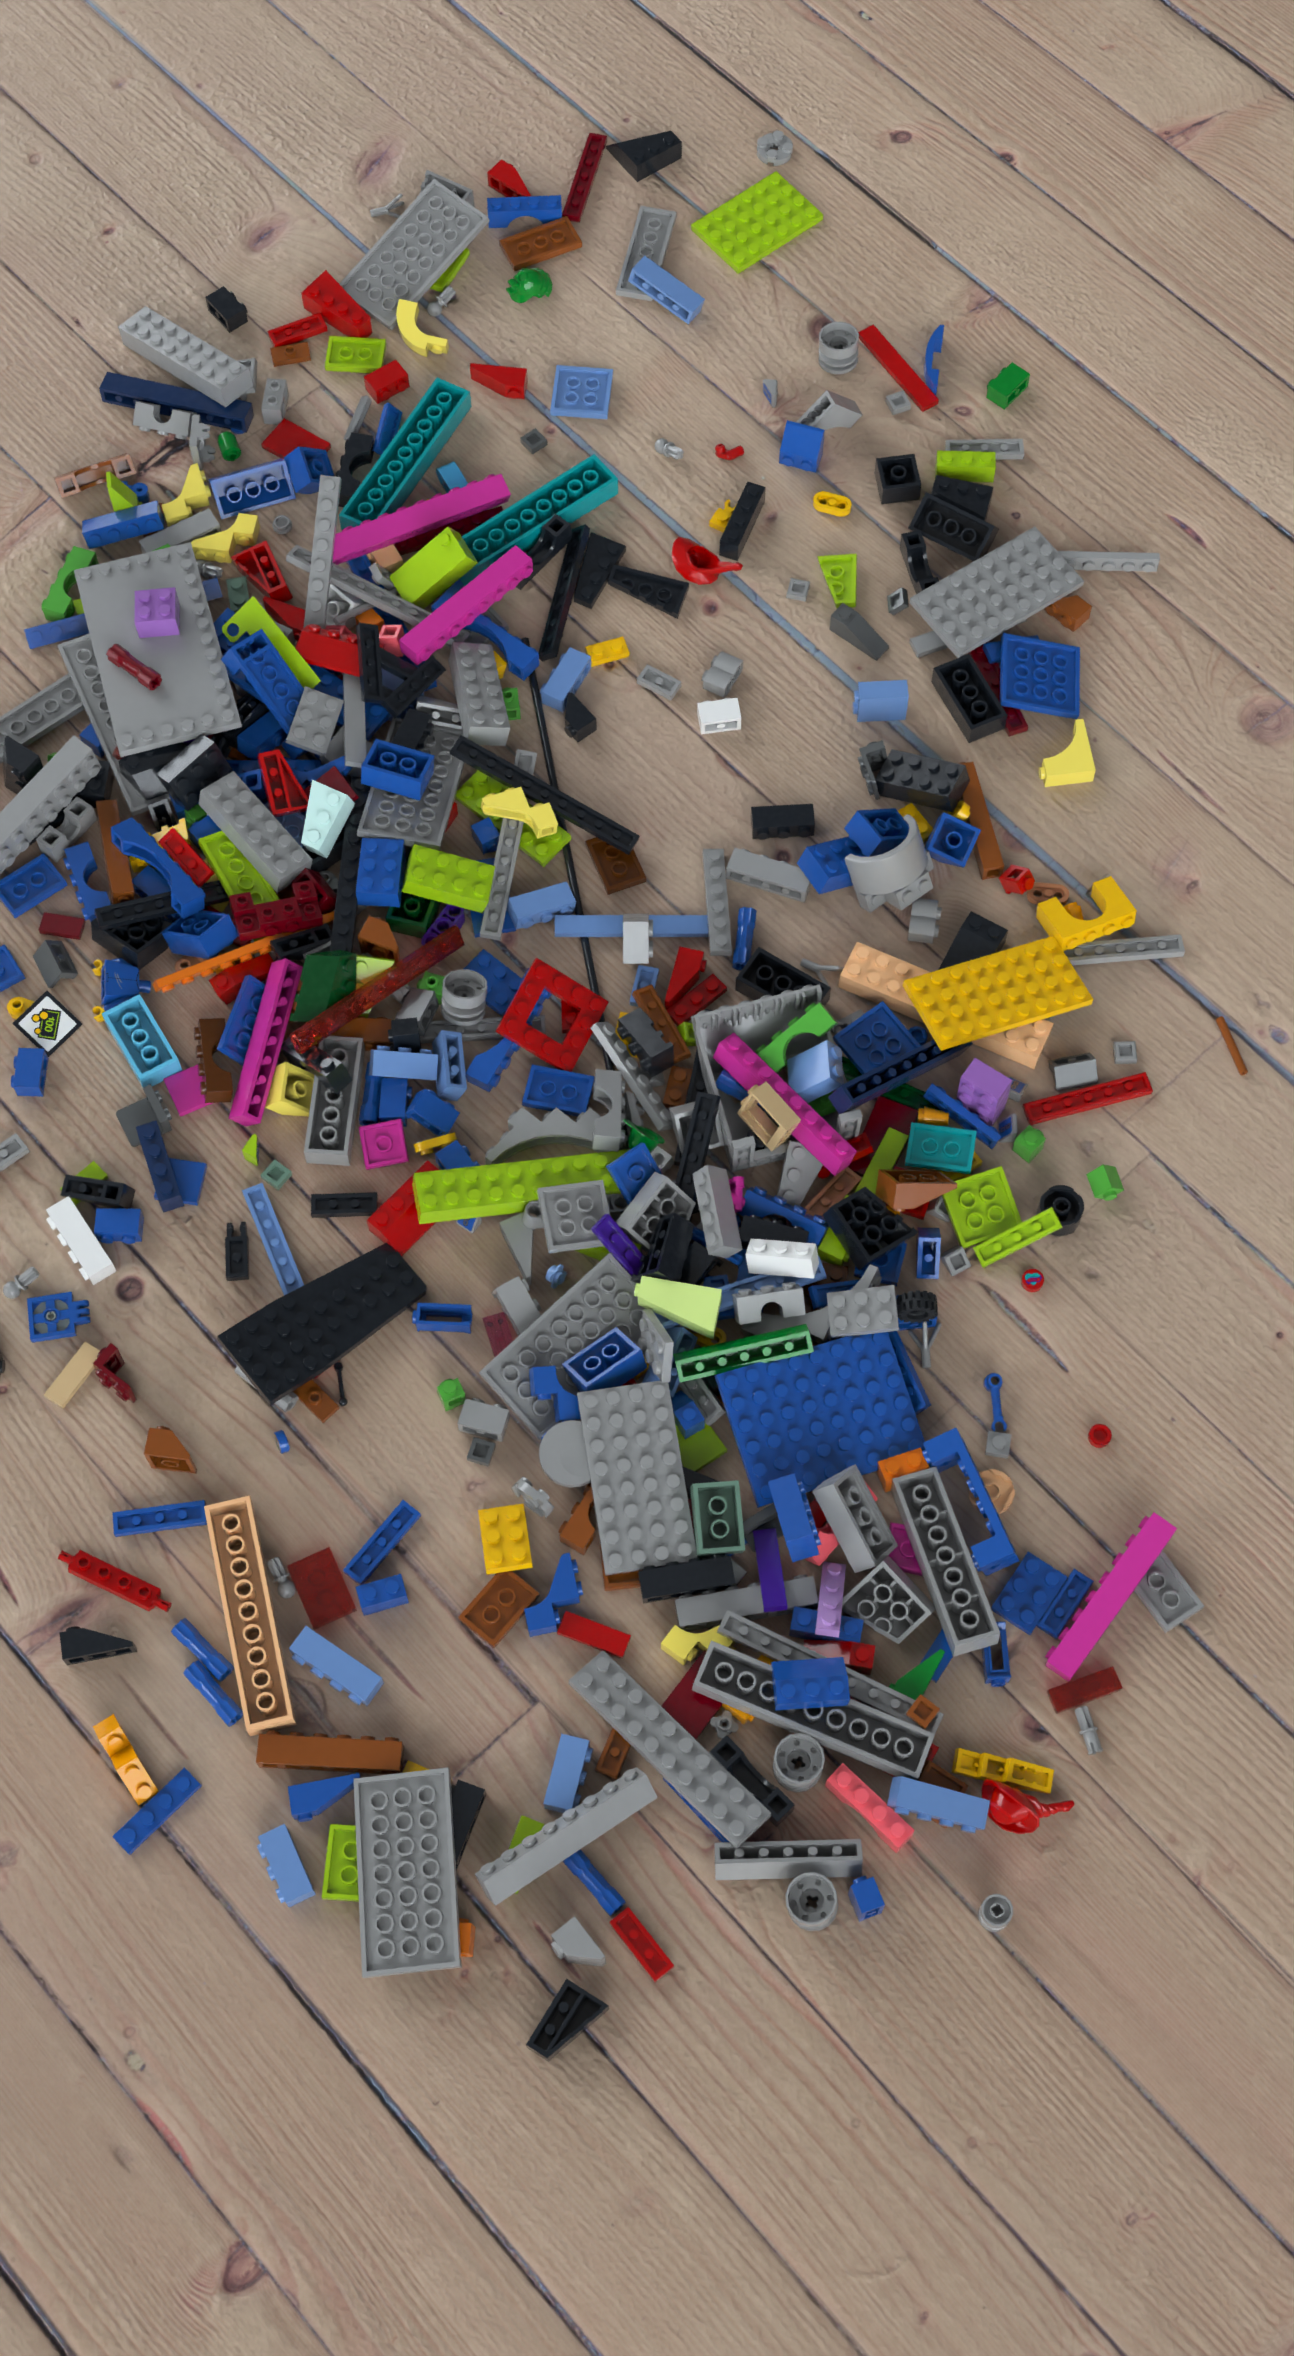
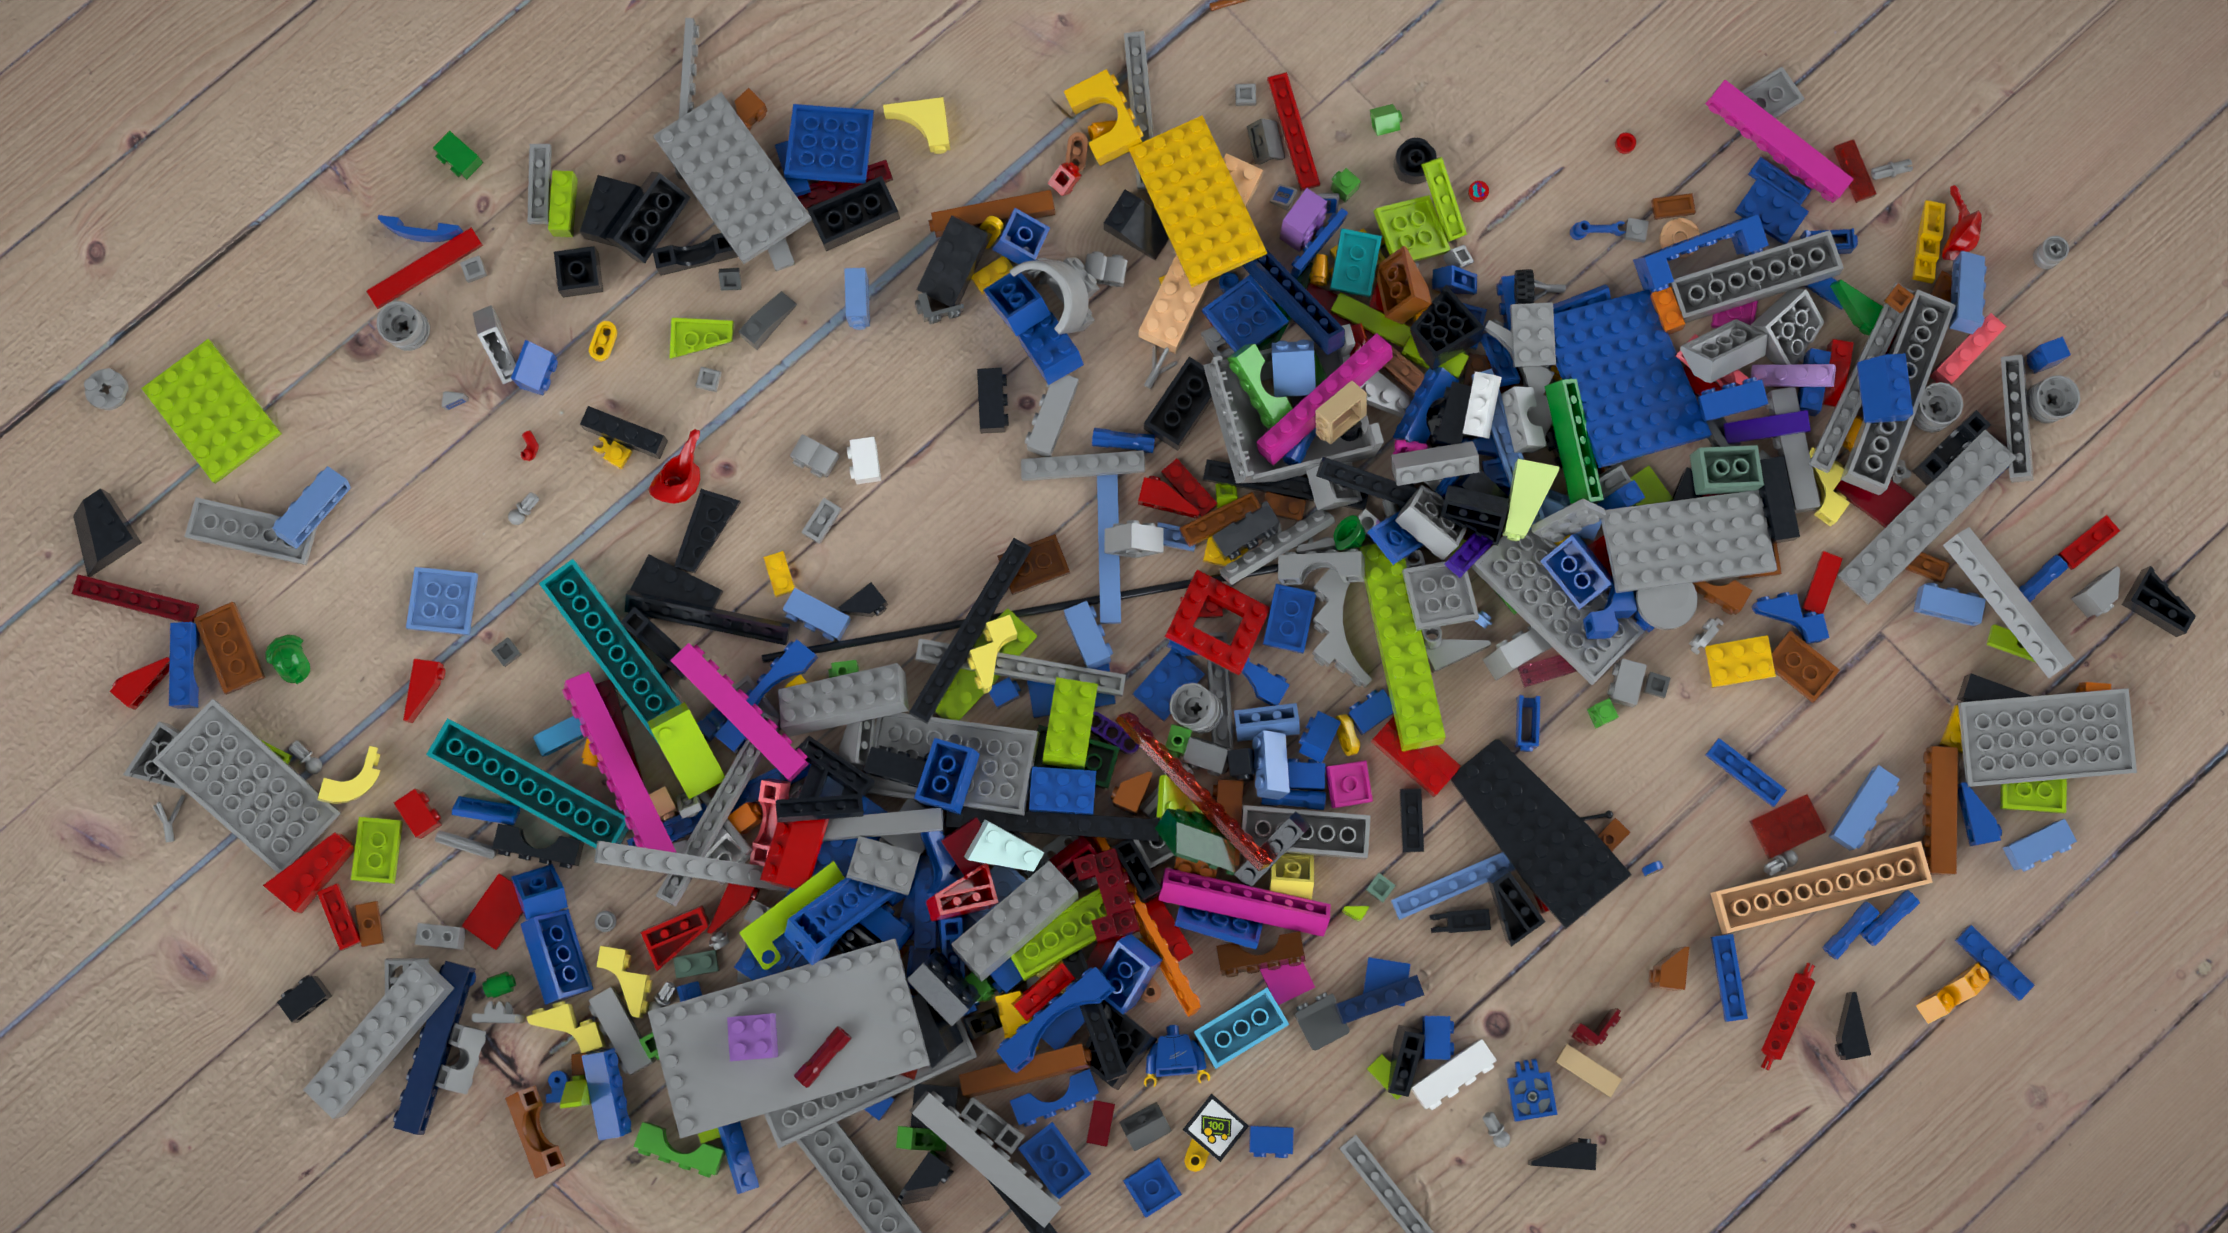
camera: 90 degrees left, 15 degrees up
(248, 1294) = (1514, 908): none -> black wedge
(382, 1594) = (1796, 769): blue brick -> none
(1028, 1485) = (1673, 206): none -> dark orange tile

